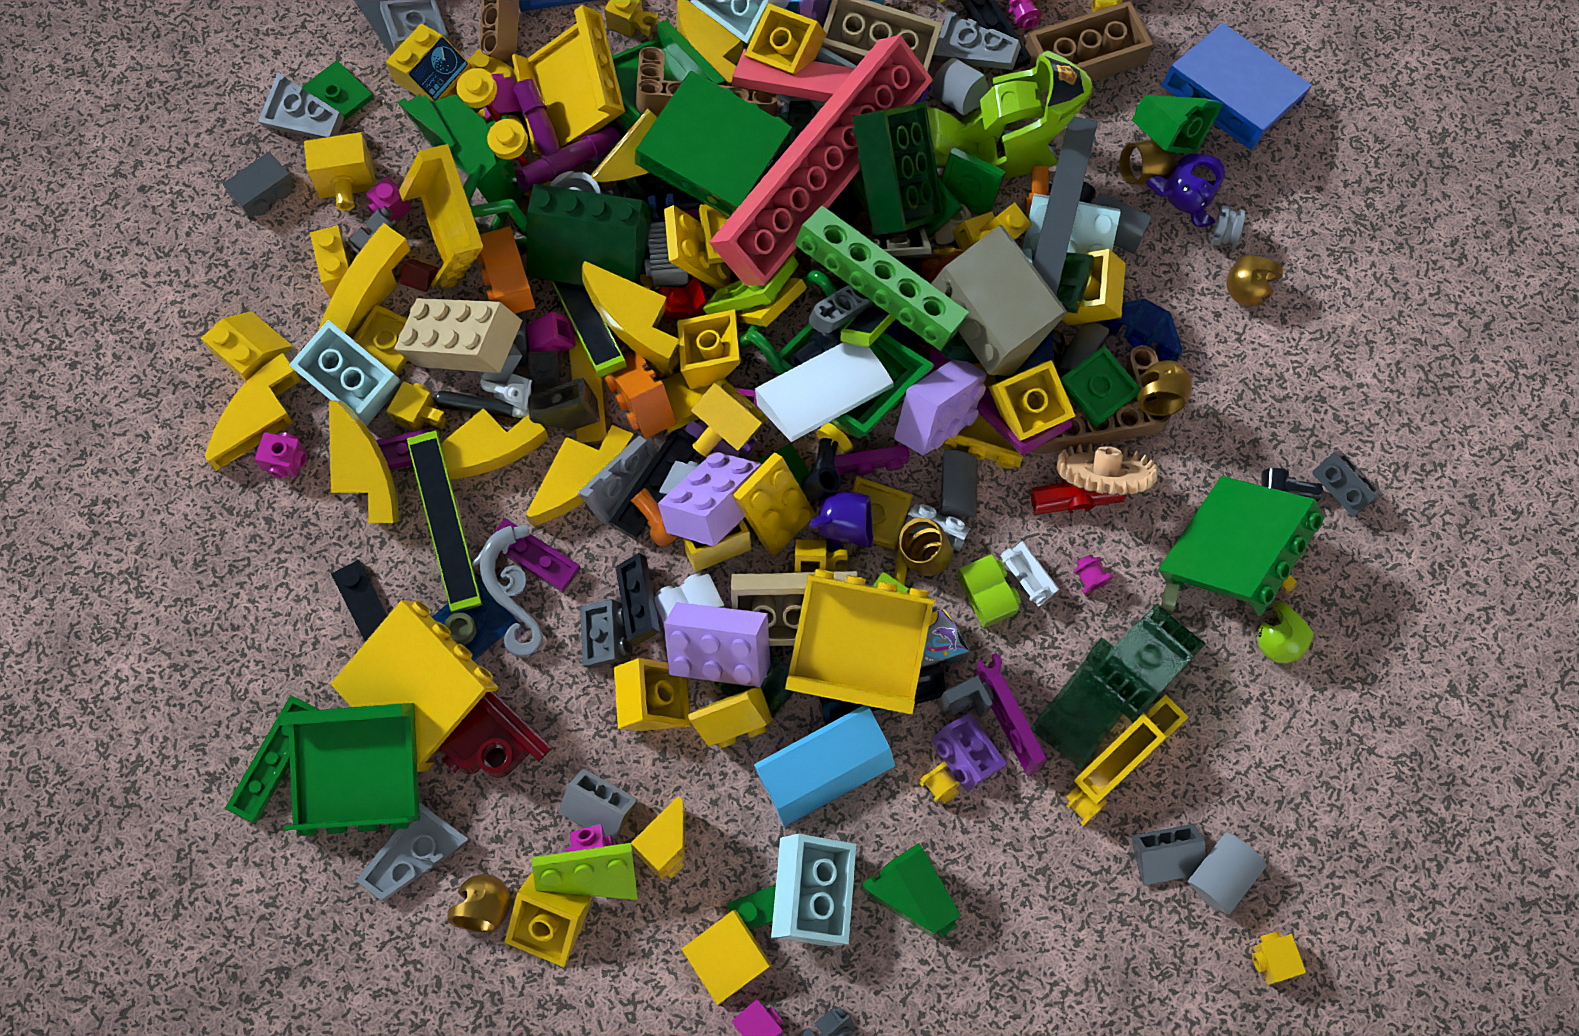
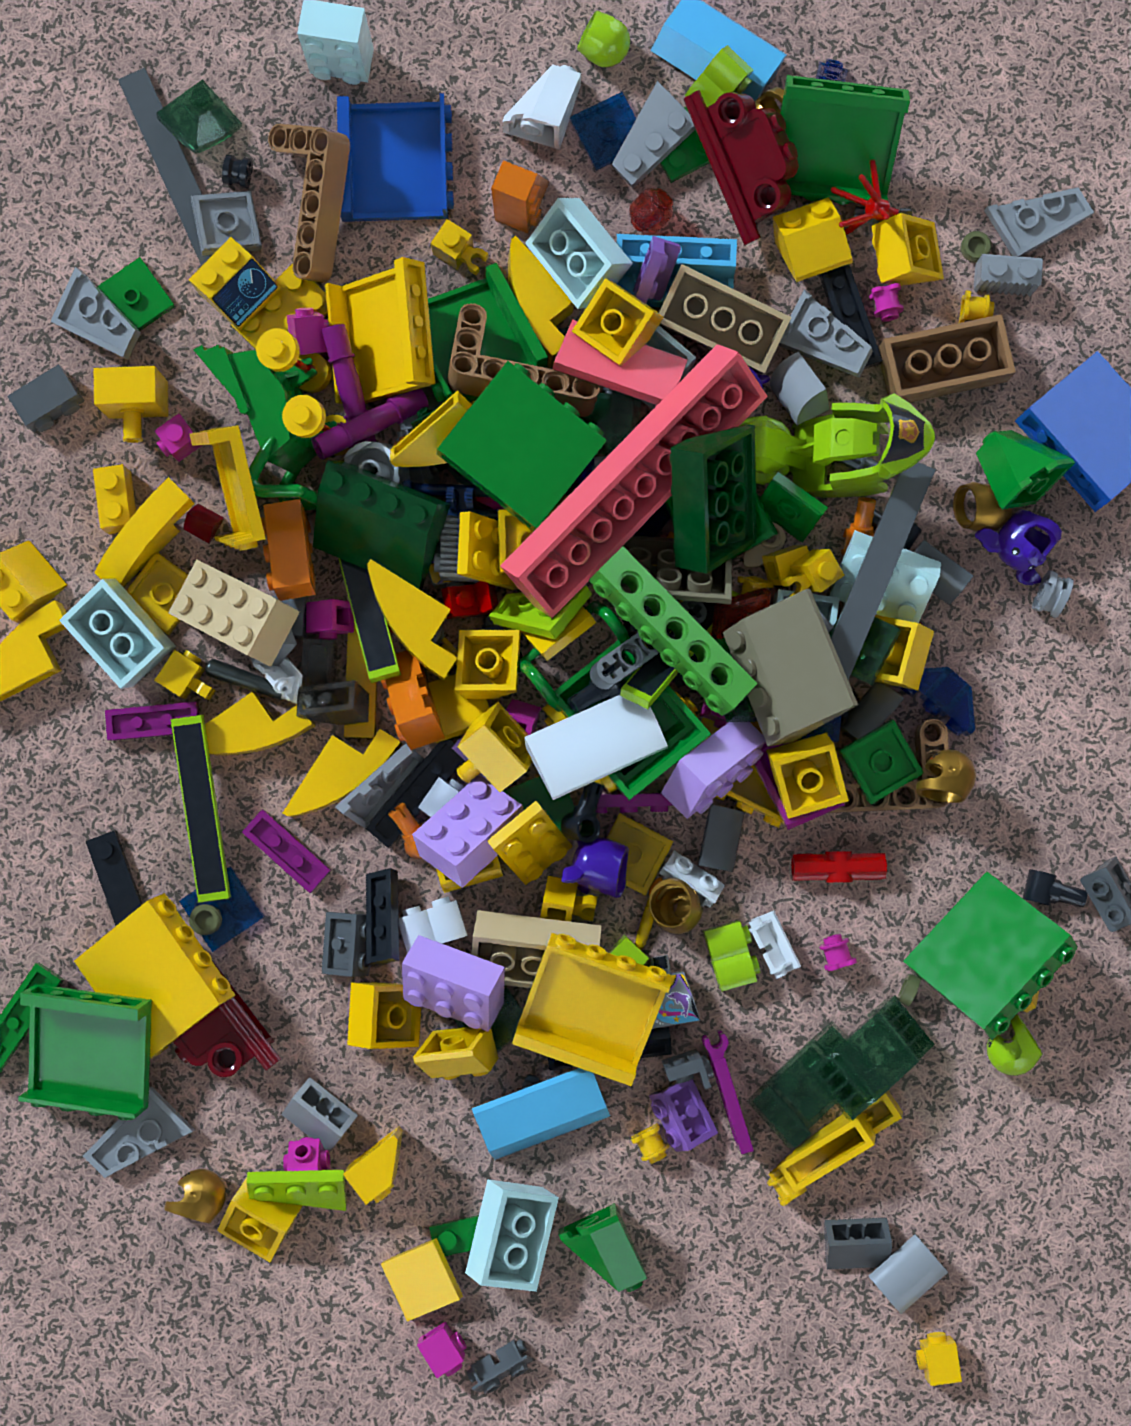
camera: 10 degrees right, 15 degrees up
(281, 455) = (45, 710): dark pink brick -> none
(359, 464) = (122, 737): yellow slope -> none
(361, 237) = (165, 467): dark grey hinge -> none
(503, 594) = (267, 878): light grey plant -> none
(1106, 470) = (899, 865): light nougat gear -> none
(1249, 279) = (1060, 660): pearl gold helmet -> none

